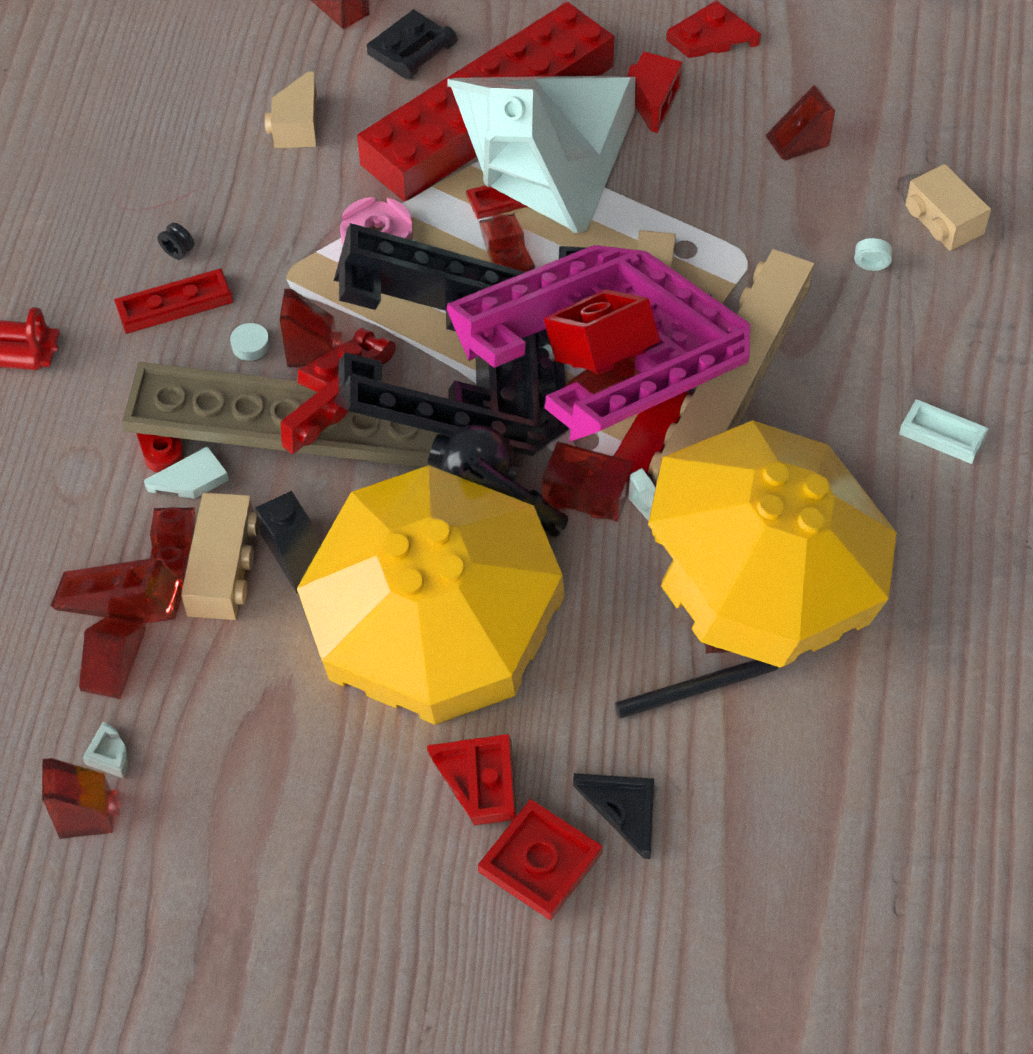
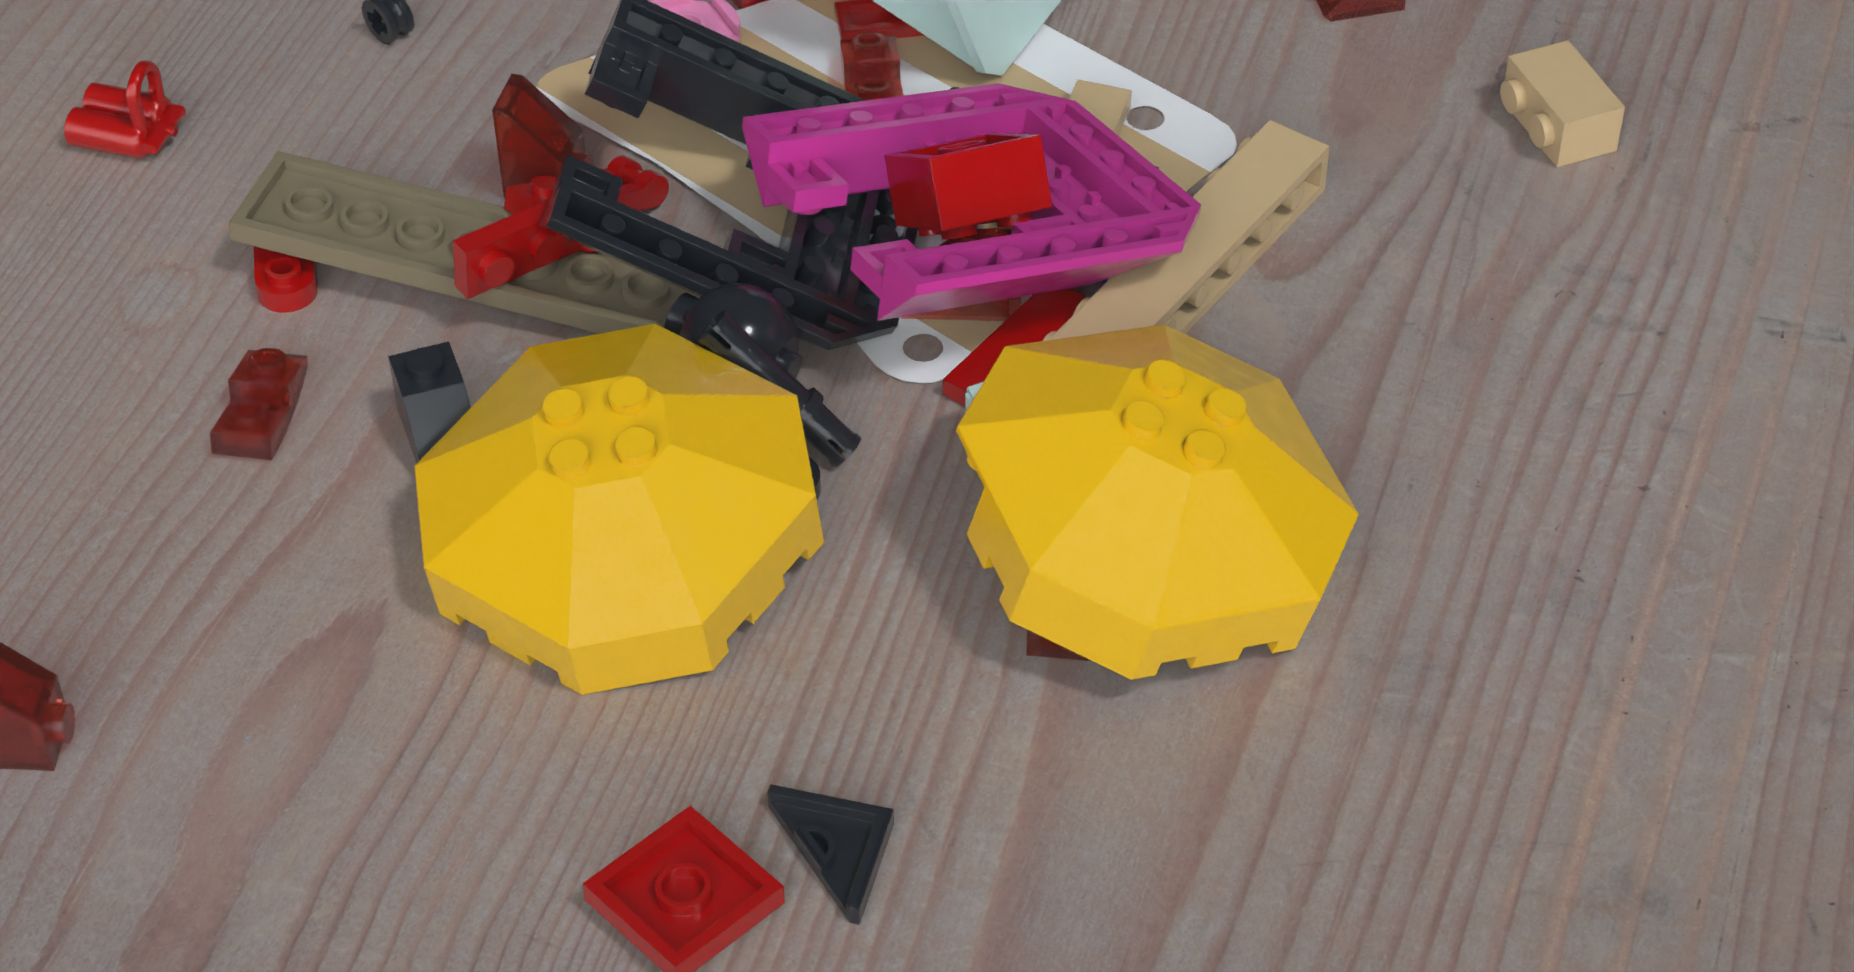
camera: 10 degrees right, 10 degrees down
(107, 752) = (80, 660): light aqua tile -> none
(109, 656) = (120, 533): clear red slope -> none
(125, 591) = (168, 449): clear red slope -> none
(173, 301) = (362, 93): red tile -> none
(189, 476) = (314, 318): light aqua tile -> none
(220, 556) = (321, 423): tan brick -> none
(250, 341) = (457, 157): light aqua tile -> none
(479, 776) = (625, 766): red wing -> none
(575, 466) = (901, 394): clear red brick -> none
(692, 687) = (994, 695): black bar -> none
(873, 254) = (1430, 151): light aqua tile -> none
(943, 431) = (1482, 402): light aqua tile -> none

